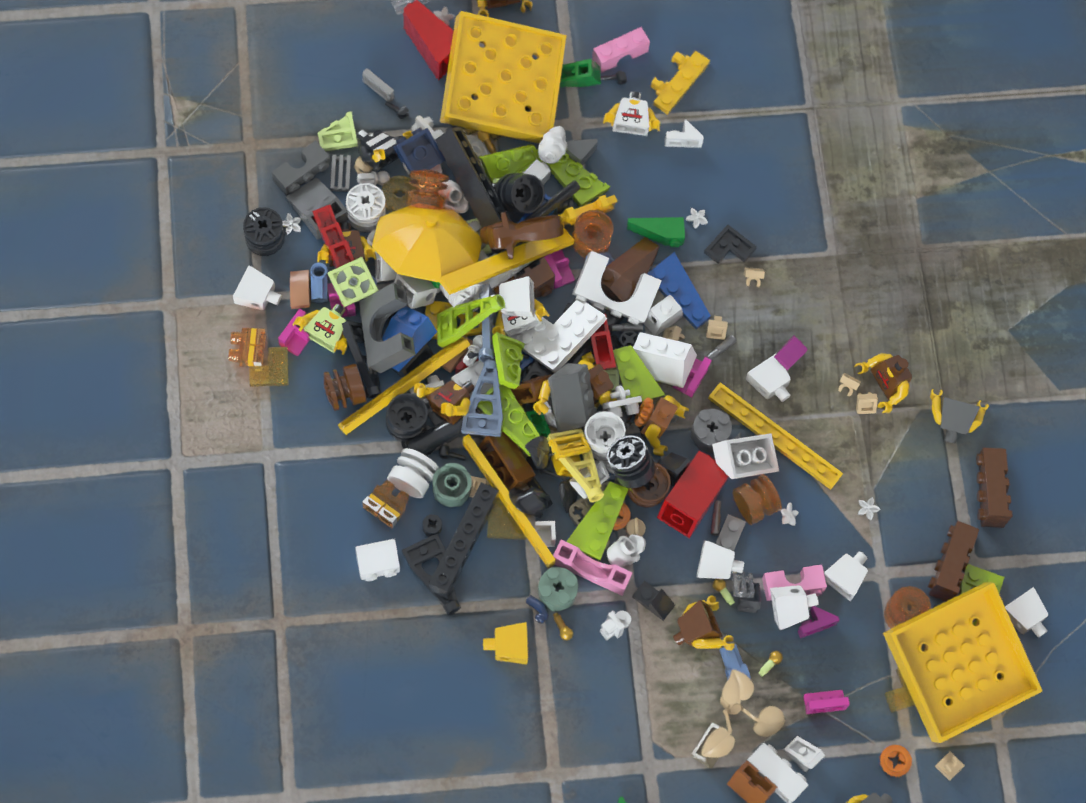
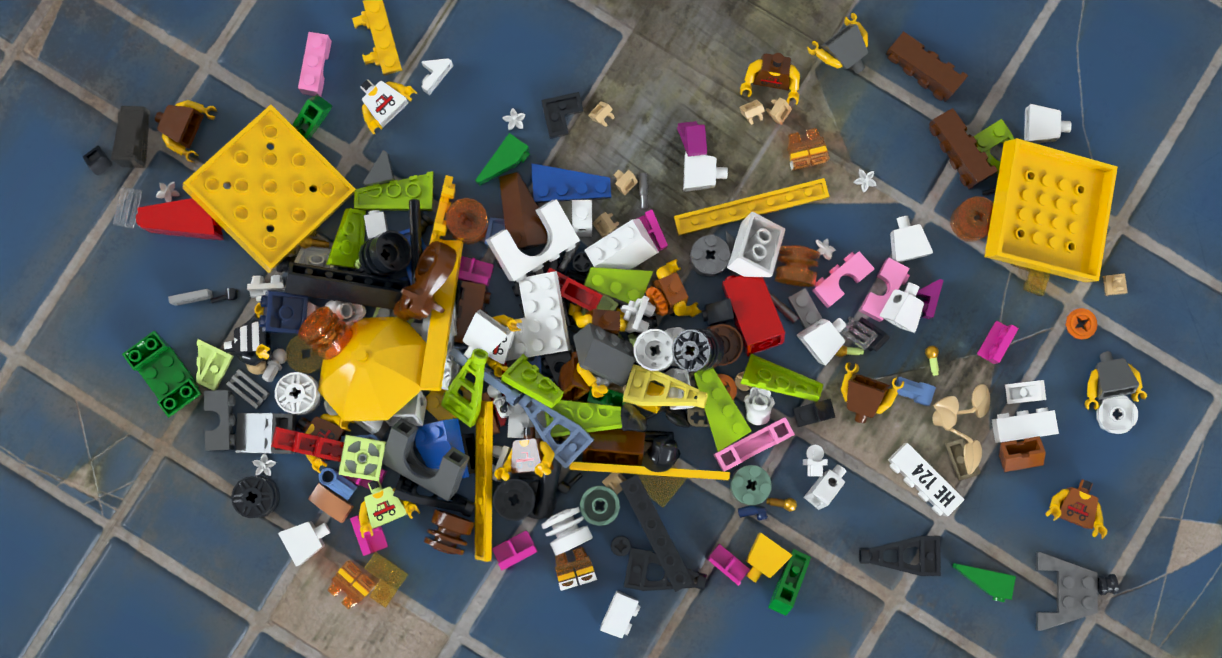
camera: 50 degrees left, 15 degrees up
(307, 103) = (163, 373): none -> green slope
(366, 450) = (514, 550): none -> dark pink panel
(481, 619) = (728, 564): none -> dark pink panel
(503, 676) = (789, 583): none -> green slope
(546, 531) = (696, 459): white panel -> none
(553, 145) = (363, 193): white head -> none
(571, 448) = (642, 403): yellow tile -> none
(601, 648) = (821, 492): none -> white torso
(609, 774) = (929, 555): none -> black plate
(620, 76) = (338, 83): black hand -> none
(656, 545) = (775, 378): none -> lime wing
(670, 725) = (926, 480): none -> white brick
(793, 545) = (855, 267): none -> bright pink arch
(849, 437) = (807, 152): none -> clear orange hips

